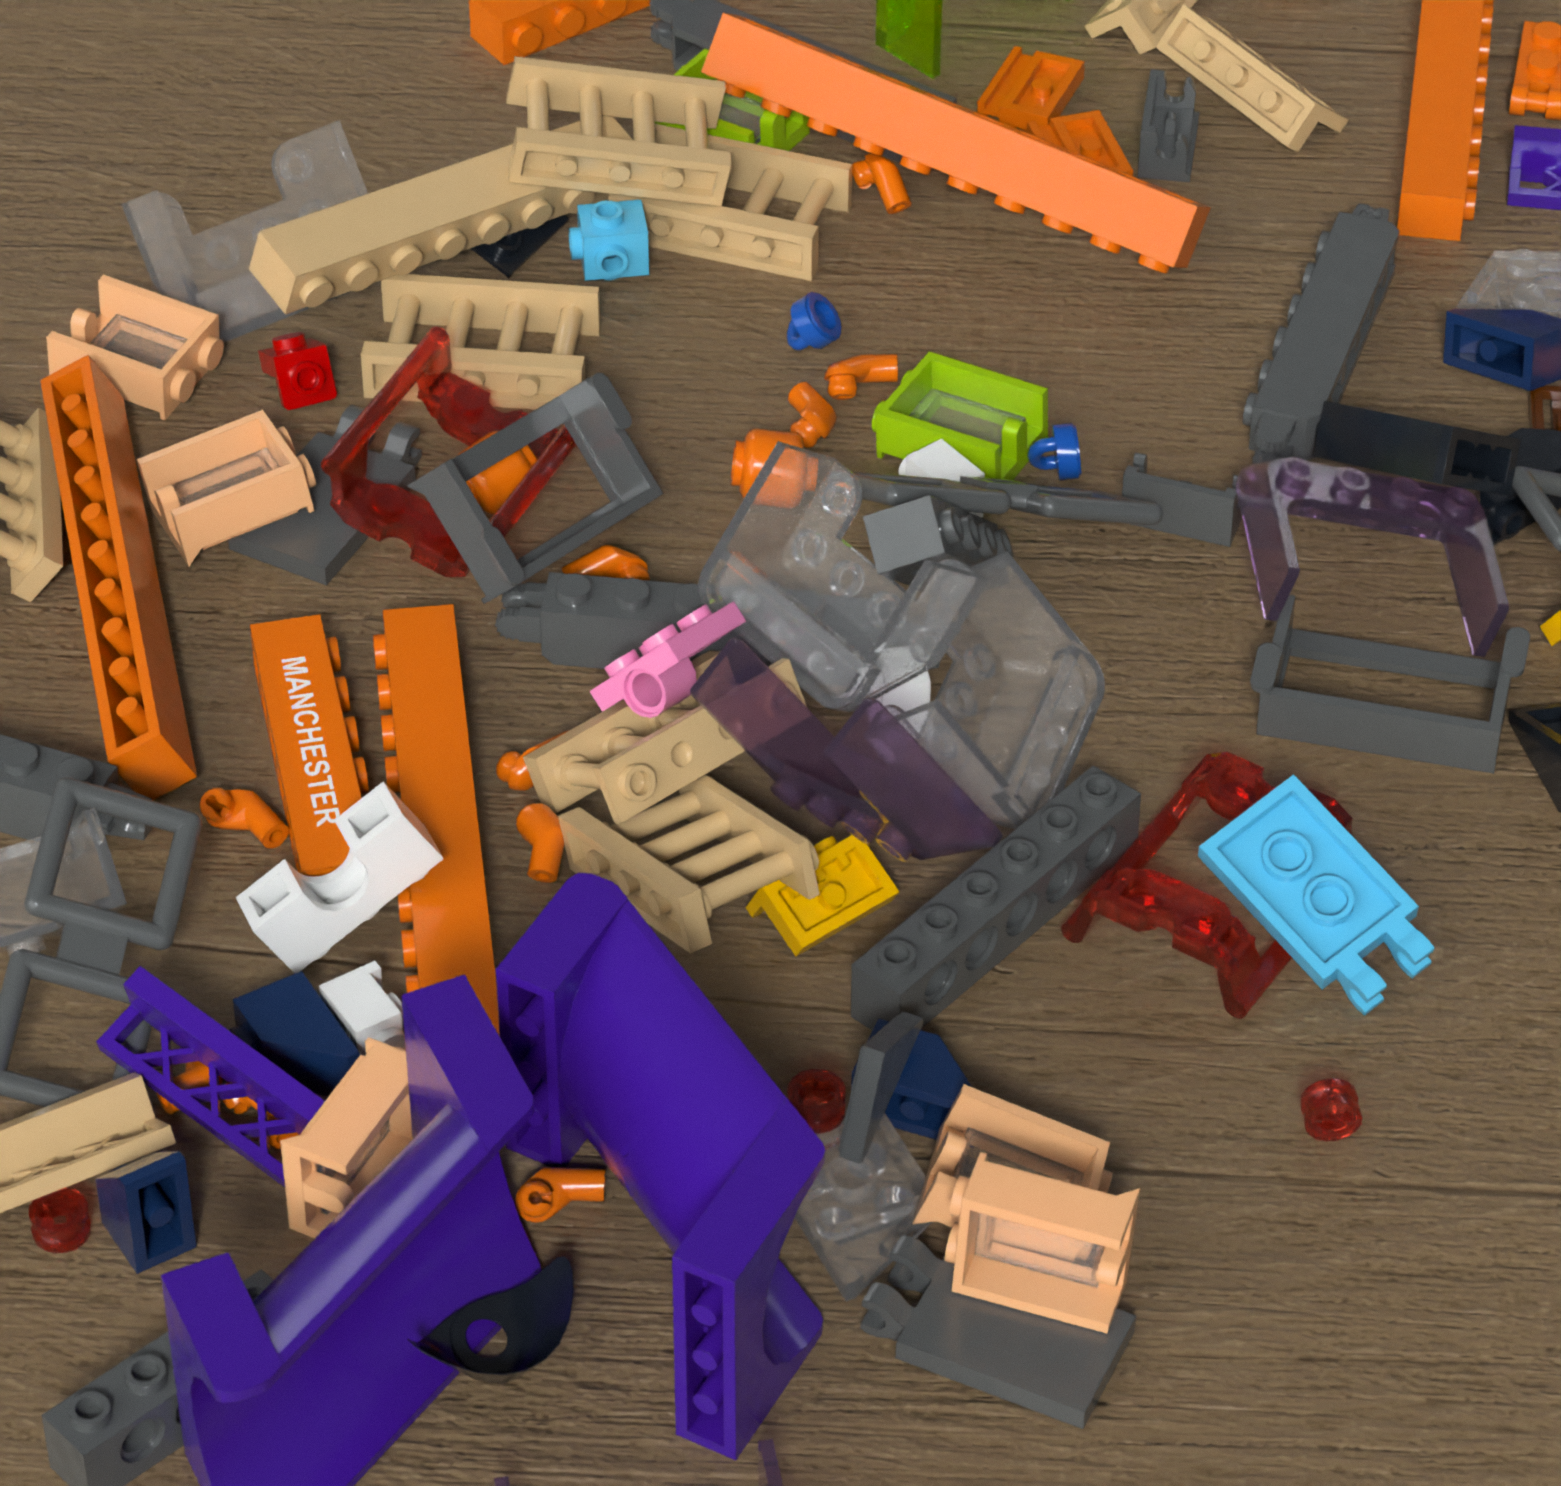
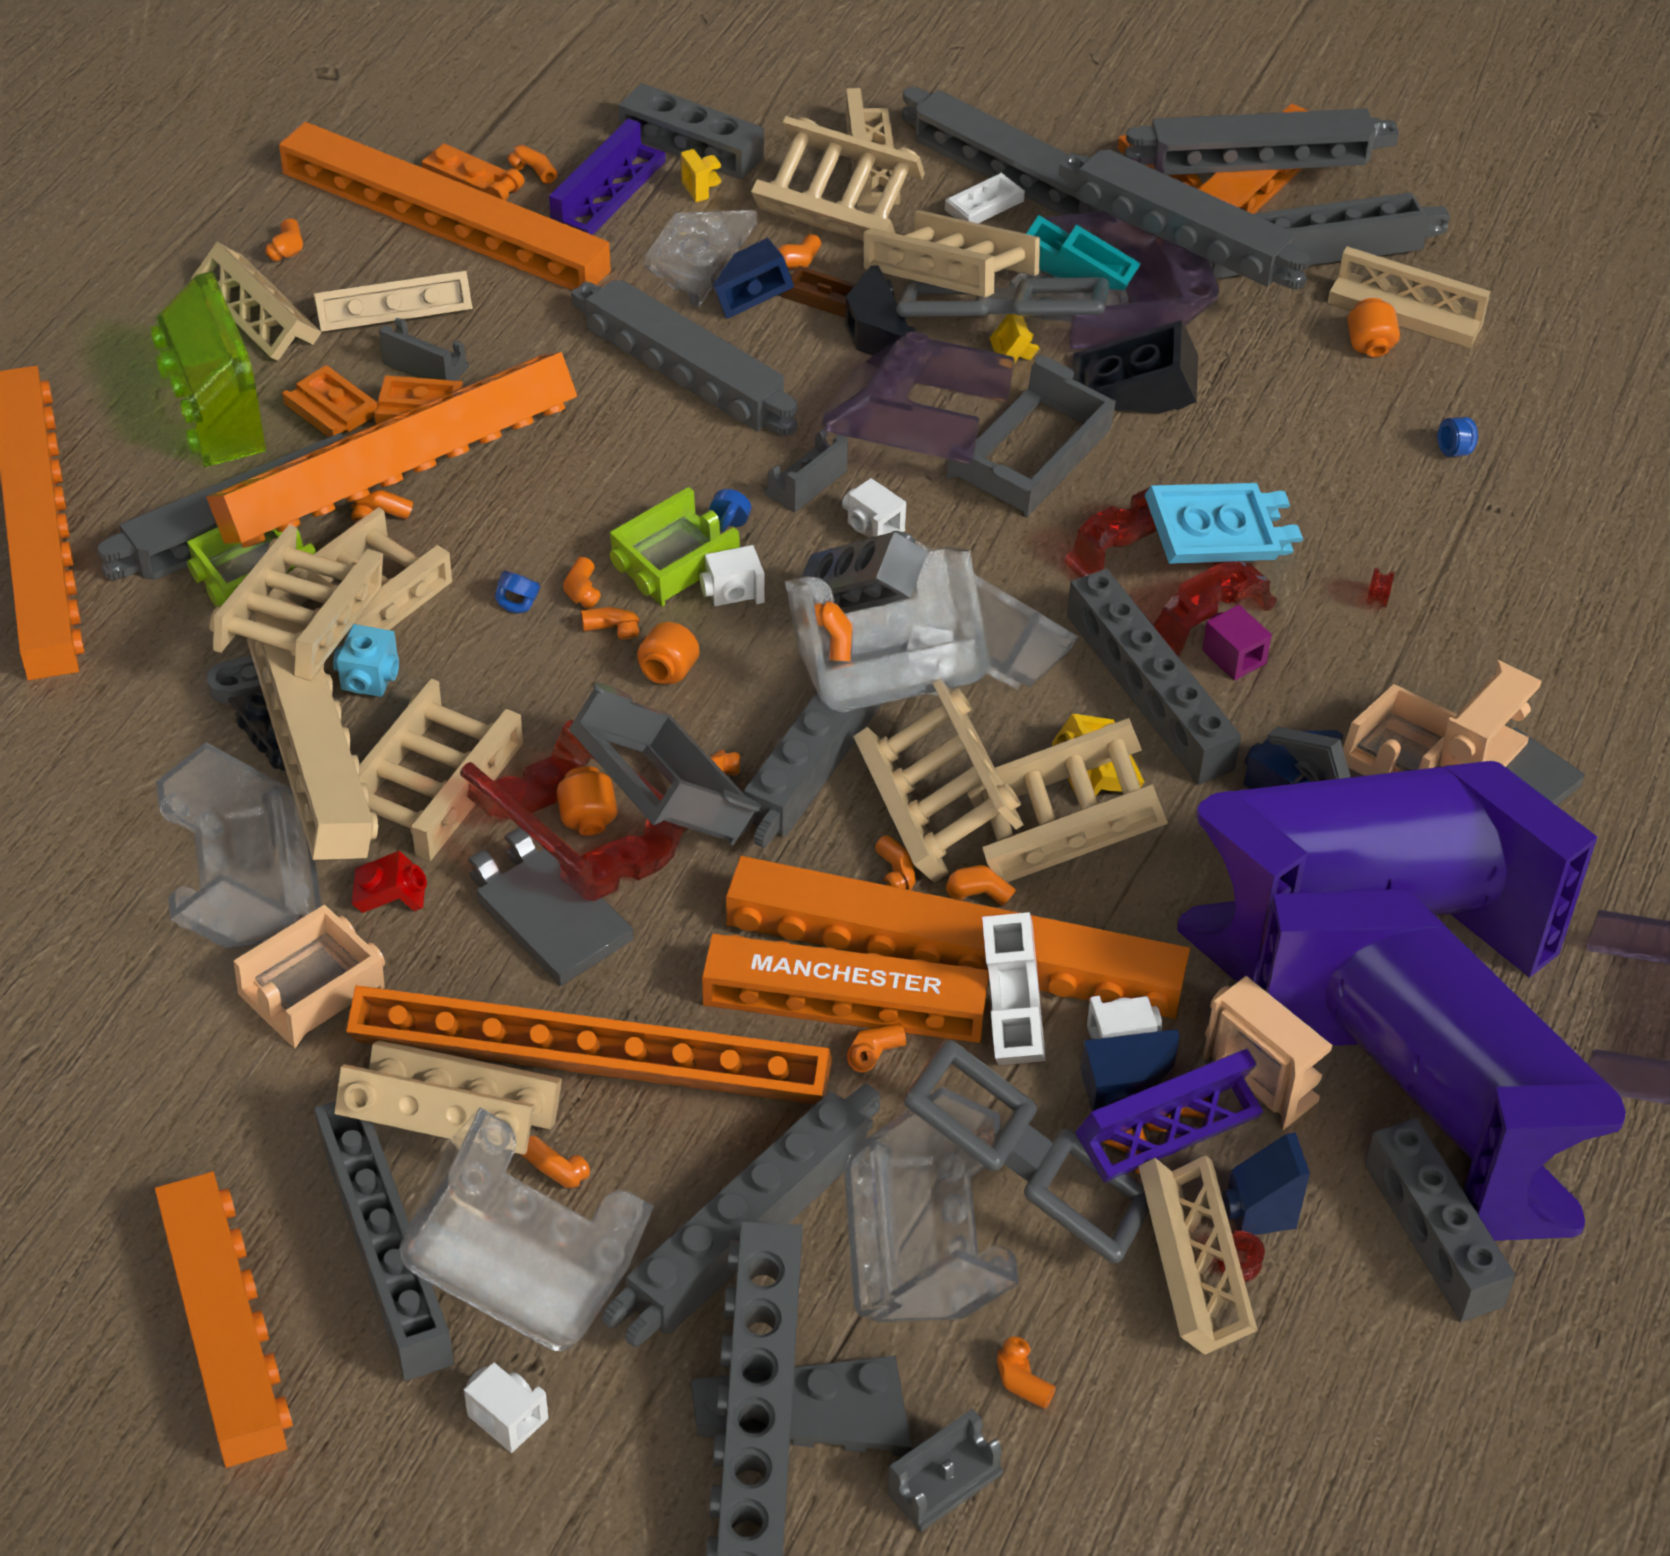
camera: 70 degrees left, 5 degrees up
(226, 483) = (527, 951): light nougat window -> none
(665, 669) = (885, 748): bright pink plate -> none
(812, 541) = (838, 627): none -> orange arm
(864, 777) = (1061, 689): clear purple windscreen -> none
(1000, 495) = (805, 537): dark grey bar -> none
(1118, 978) = (1236, 642): none -> magenta brick
(1139, 579) = (874, 509): none -> white brick
(1417, 448) = (854, 343): black slope -> none

